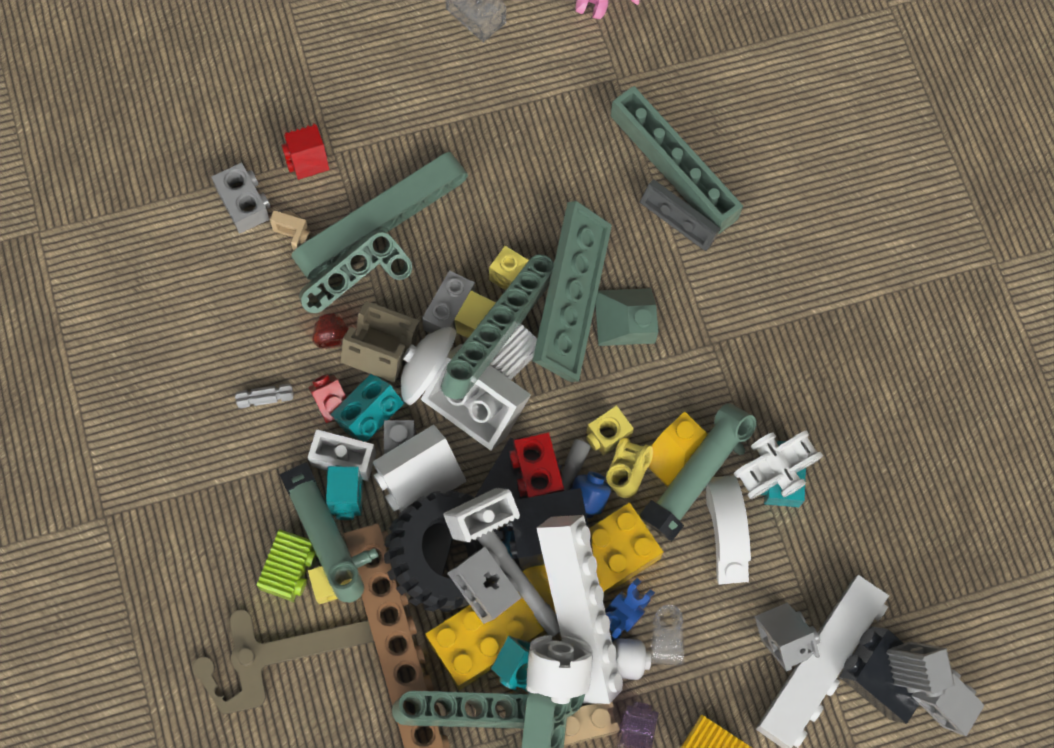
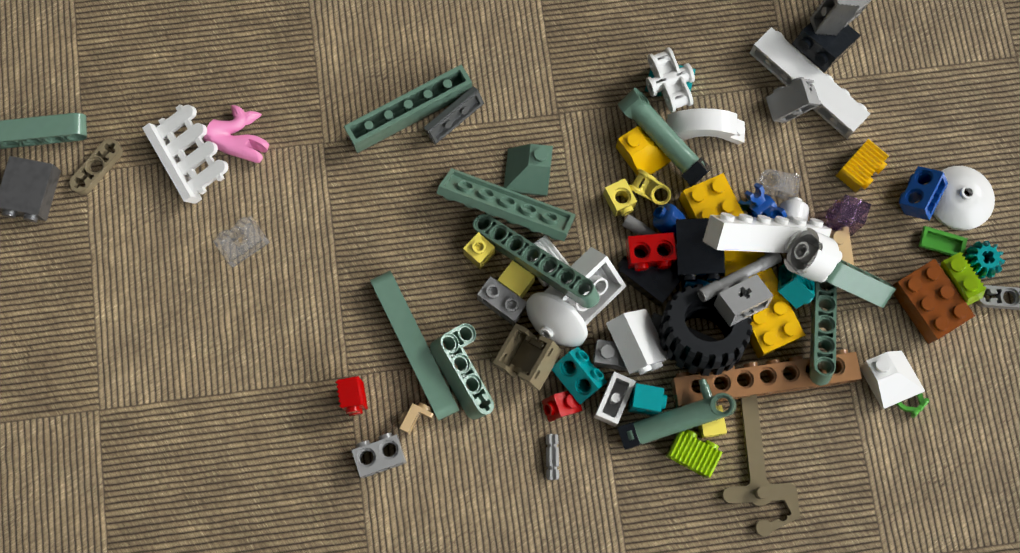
camera: 80 degrees left, 5 degrees up
(329, 331) = (508, 396): clear red cone -> none
(481, 515) = (693, 292): white brick -> none

